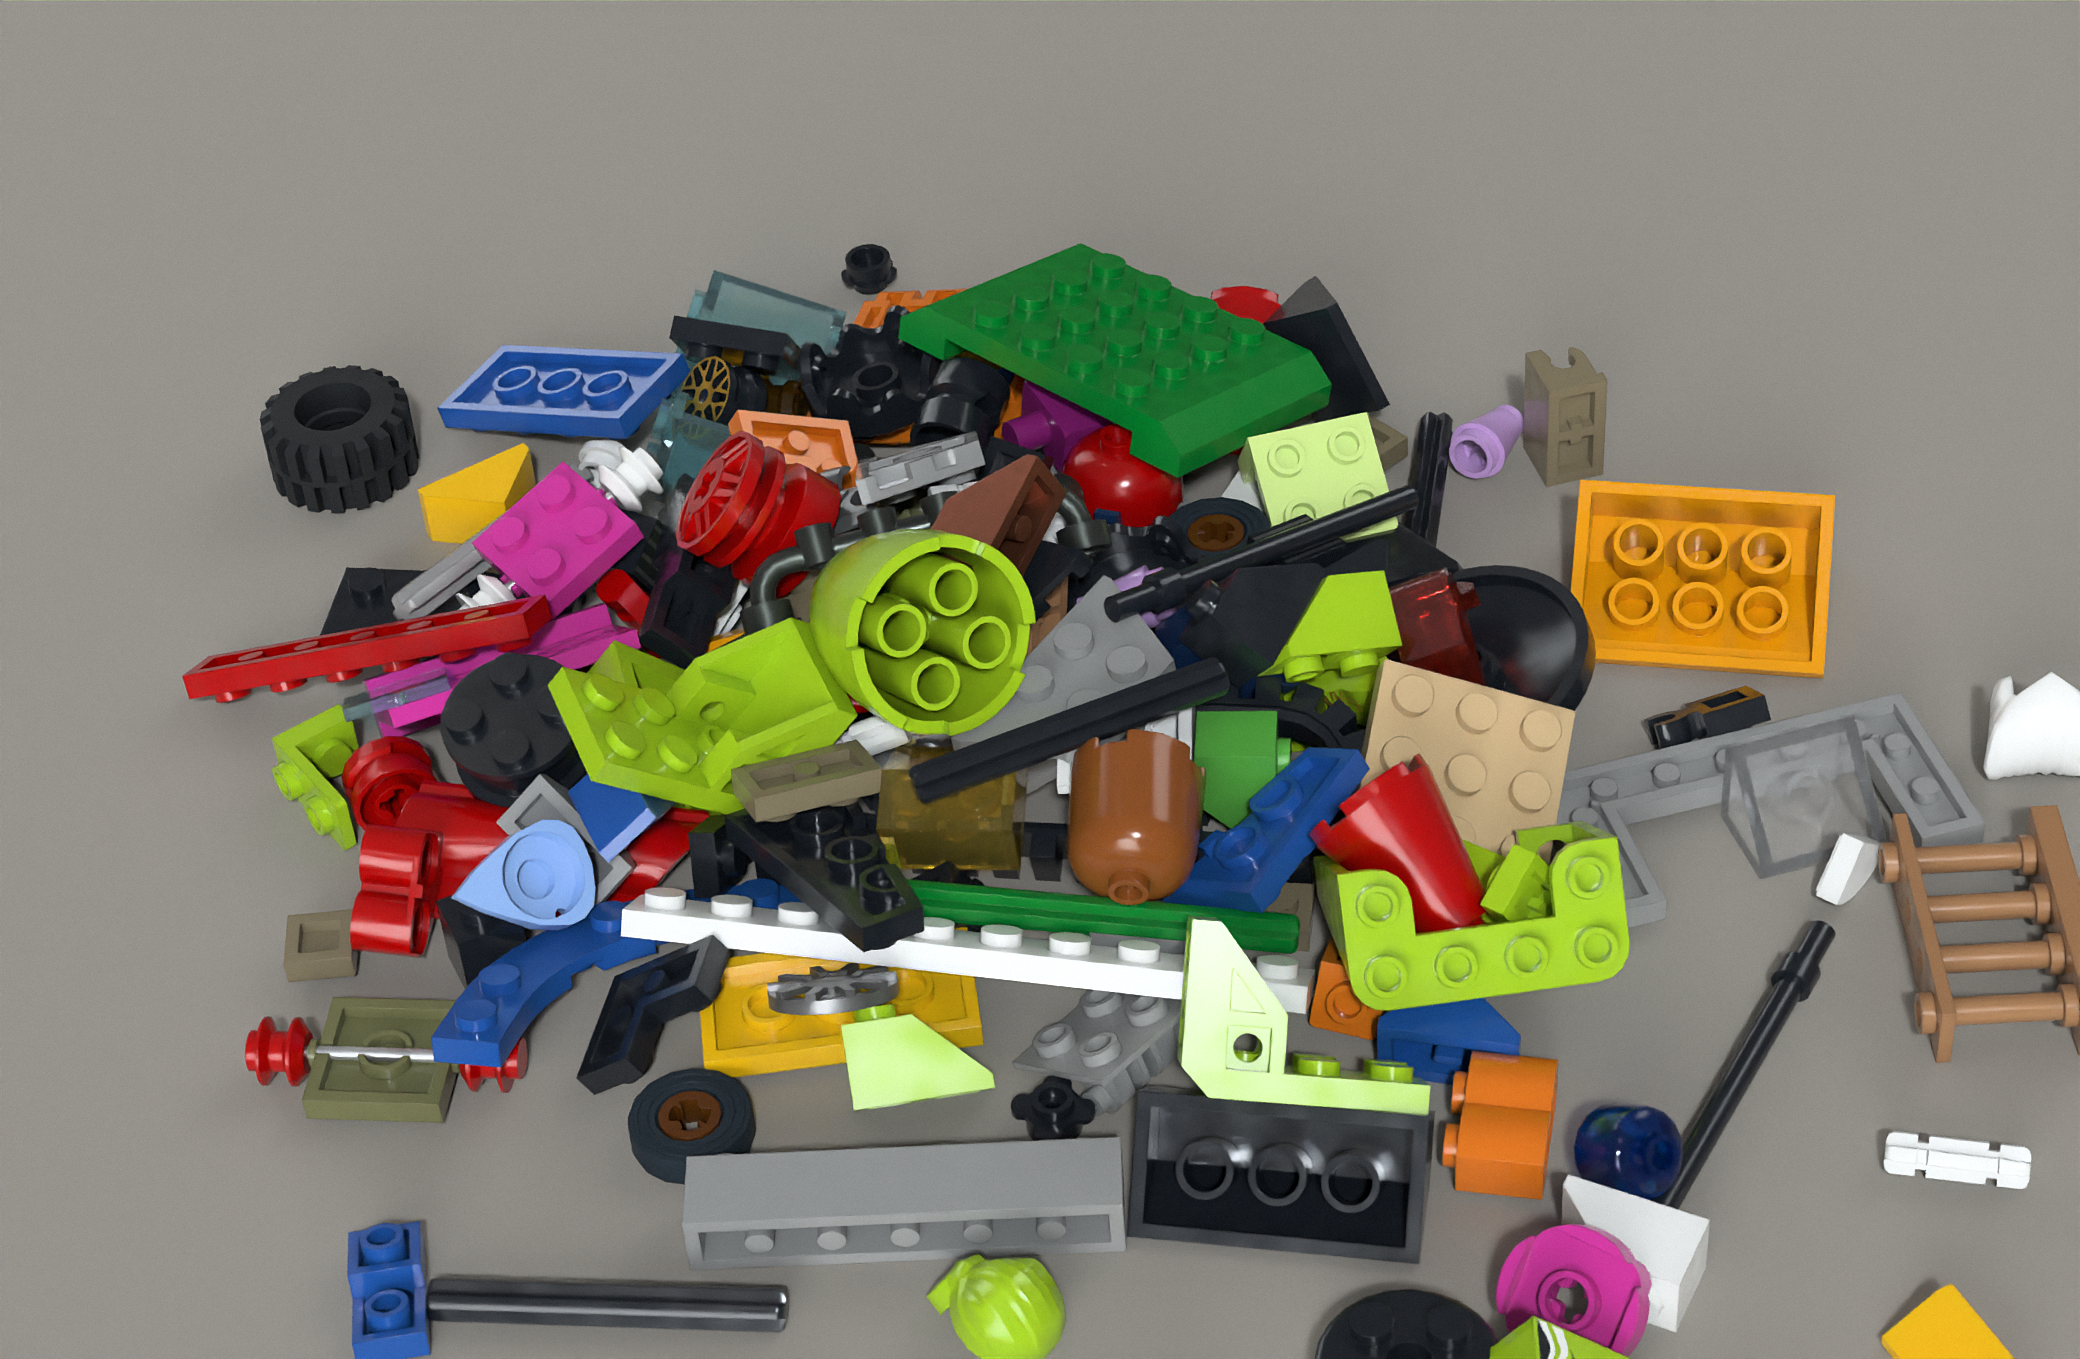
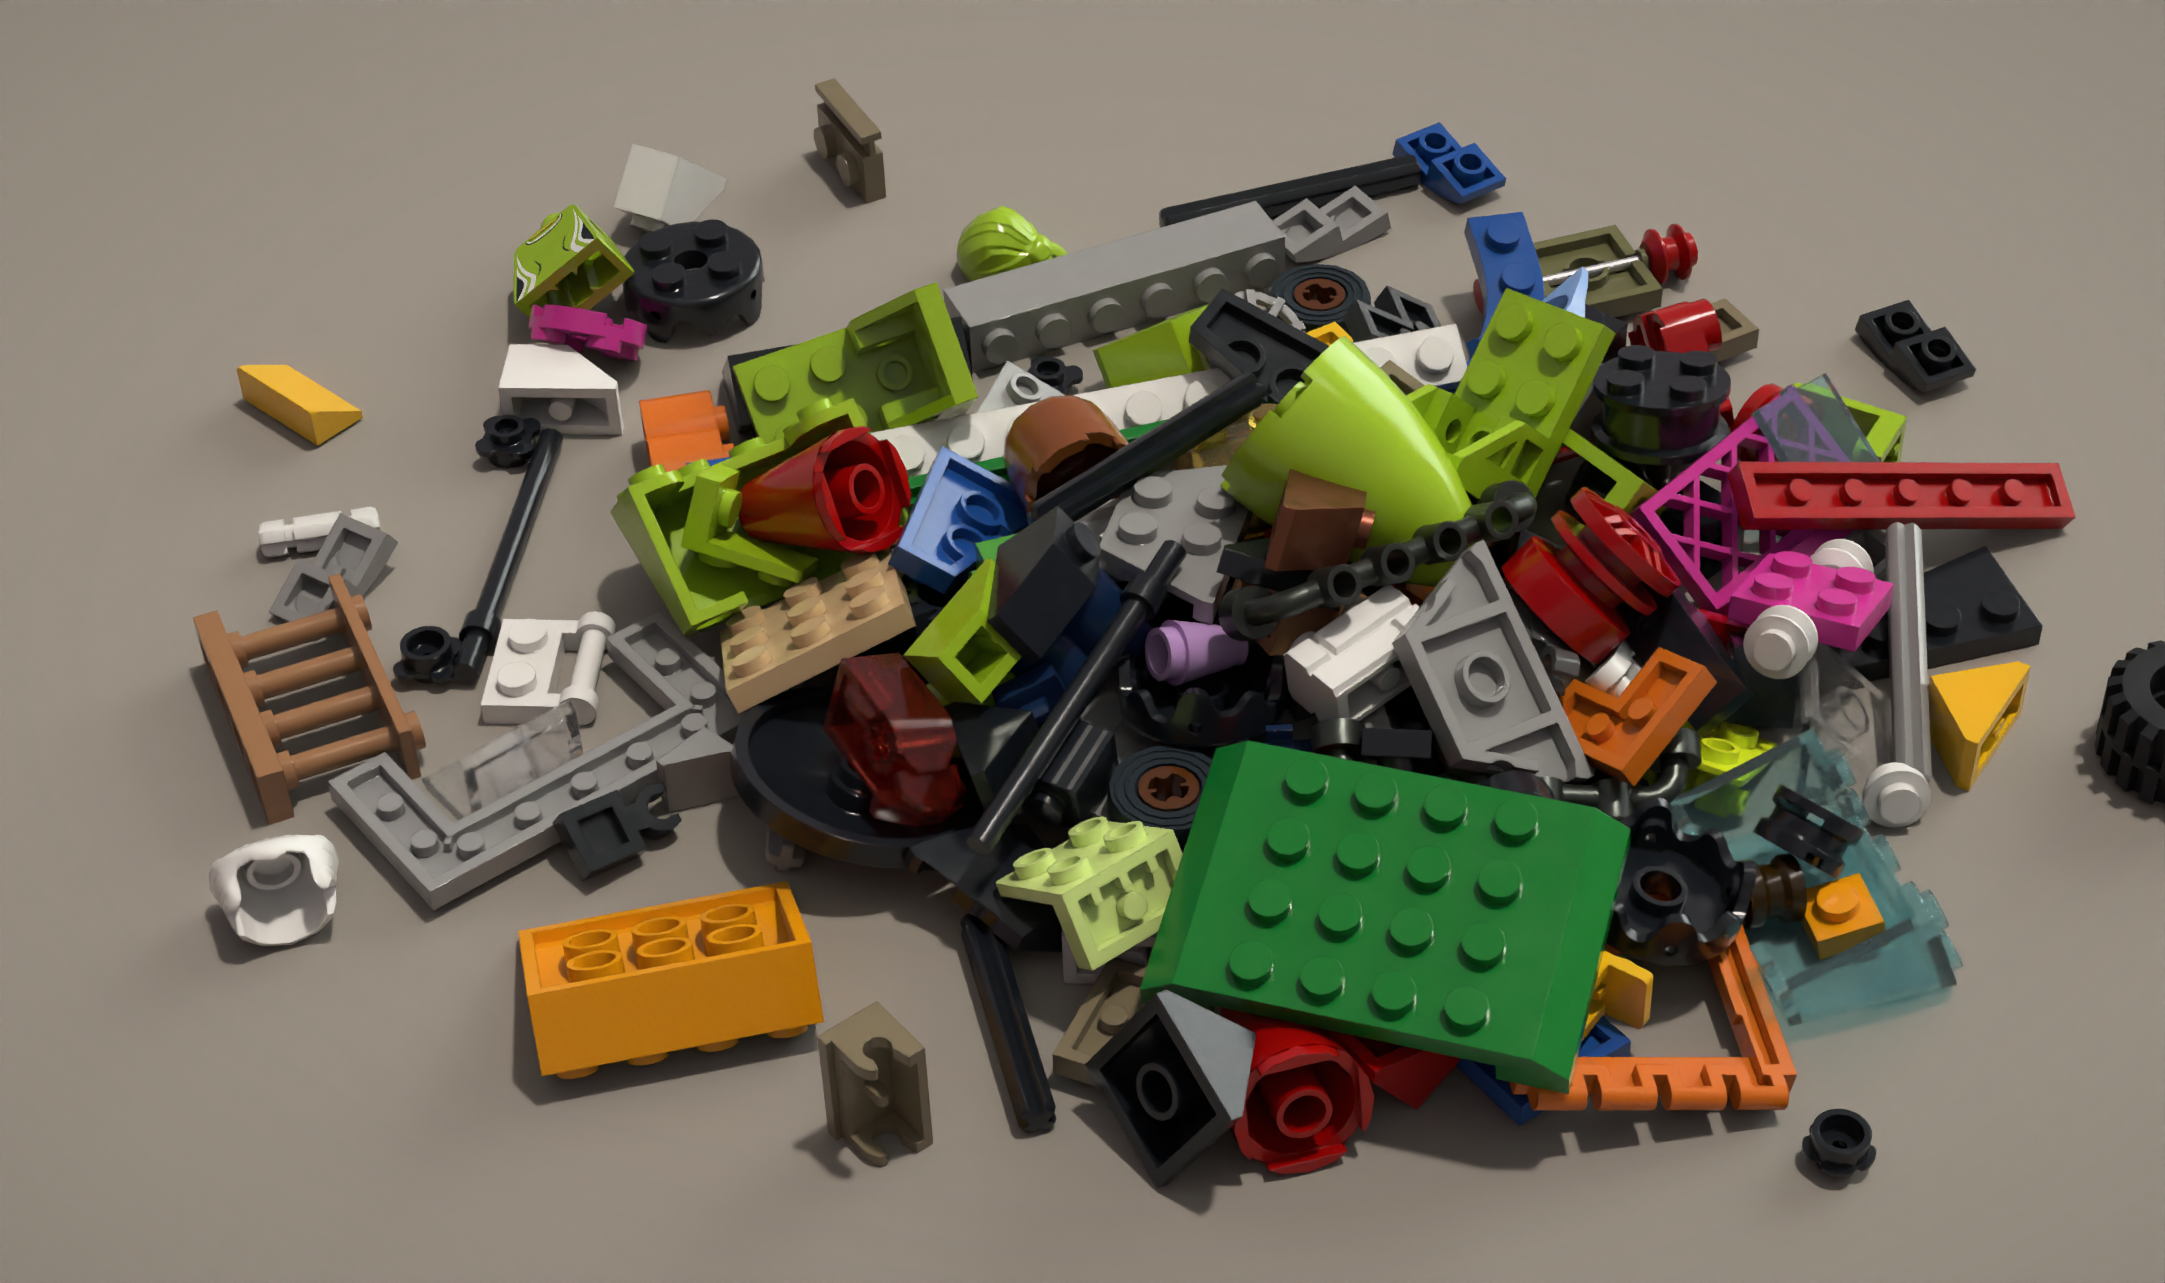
camera: 155 degrees right, 0 degrees up
(151, 879) = (1912, 349): none -> black slope
(564, 391) = (2006, 829): blue plate -> none
(619, 1242) = (1333, 228): none -> light grey slope
(751, 348) = (1829, 877): black wing -> none
(1485, 442) = (965, 1095): lavender cone -> none
(1613, 735) = (696, 772): none -> light grey slope
(1629, 1149) = (578, 437): clear blue head -> none
(1723, 1214) = (508, 440): none -> black plate
(1752, 928) = (530, 663): none -> white plate
(1848, 868) = (446, 723): white tile -> none
(1859, 961) = (427, 655): none -> black plate
(1950, 1087) = (349, 549): none -> light grey slope

